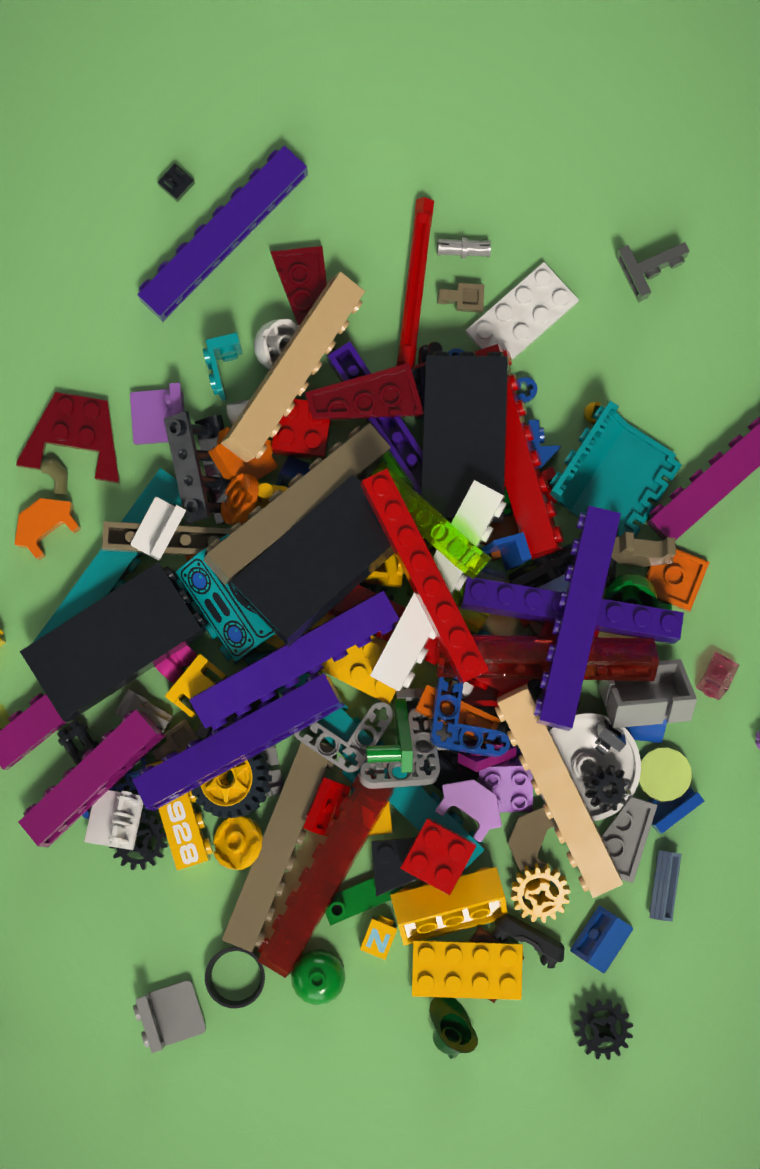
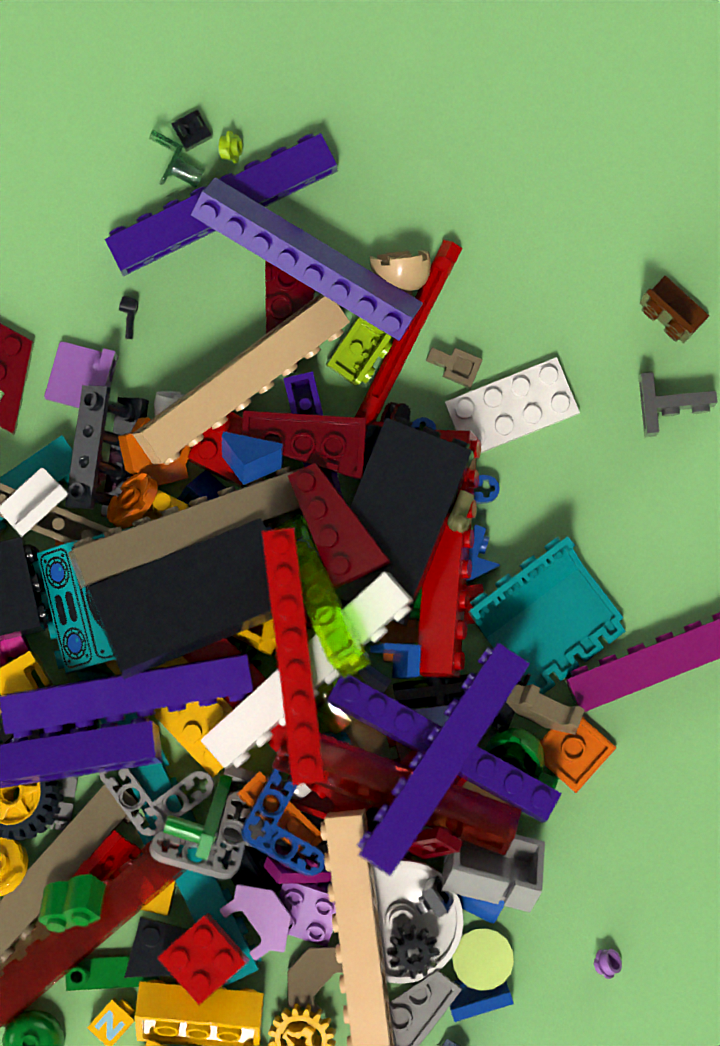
camera: 25 degrees right, 0 degrees up
(174, 215) = (177, 166): none -> clear green bracket
(177, 343) = (129, 306): none -> black hand
(213, 184) = (230, 147): none -> lime plate
(225, 348) = (177, 329): teal bracket -> none
(272, 340) = (231, 339): white cylinder -> none
(311, 250) = (306, 258): none -> dark purple brick
(311, 849) = (71, 902): none -> green brick
(325, 428) = (250, 456): none -> blue slope
(381, 313) = (359, 352): none -> lime bracket
(391, 236) = (403, 269): none -> tan cylinder
(419, 462) = (338, 534): none -> dark red wing
(463, 247) = (475, 311): light grey pin -> none
(515, 417) = (457, 519): none -> olive arm
(589, 410) = (547, 535): yellow hinge -> none
(595, 690) = (435, 843): none -> dark red plate
(624, 190) = (673, 309): none -> reddish brown bracket
(717, 676) = (579, 874): clear pink bracket -> none

